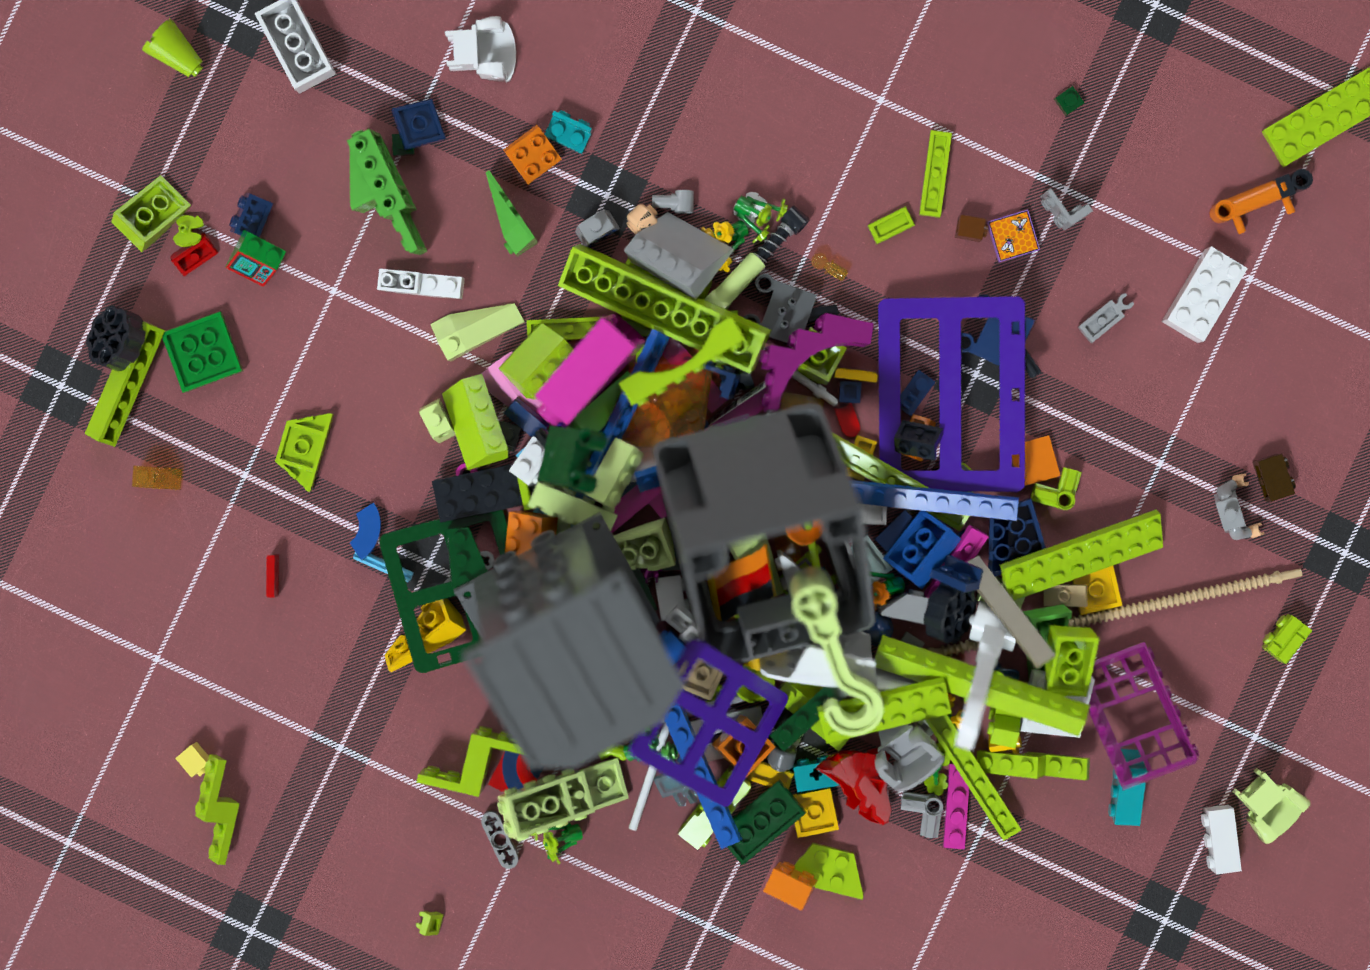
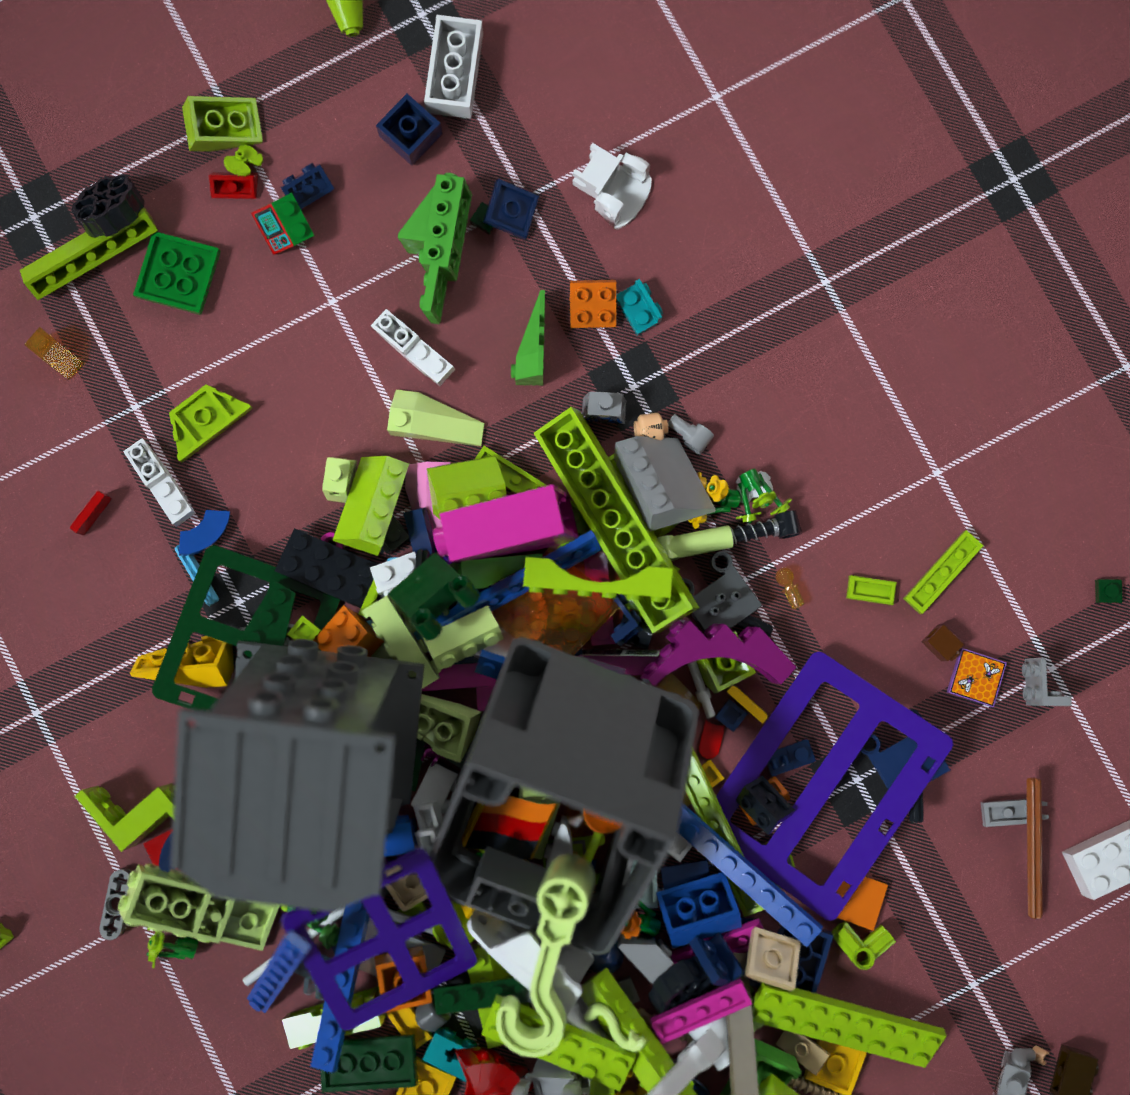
camera: 30 degrees right, 5 degrees down
(297, 117) = (409, 129): none -> dark blue brick
(306, 517) = (160, 482): none -> white slope
(493, 550) = (303, 630): none -> lime tile
(652, 798) = (278, 971): none -> blue plate
(936, 670) = (634, 1043): none -> yellowish green animal
(970, 617) = (701, 1011): none -> dark pink plate
(997, 545) = (773, 959): none -> tan plate
(1137, 332) = (1034, 848): none -> dark orange axle

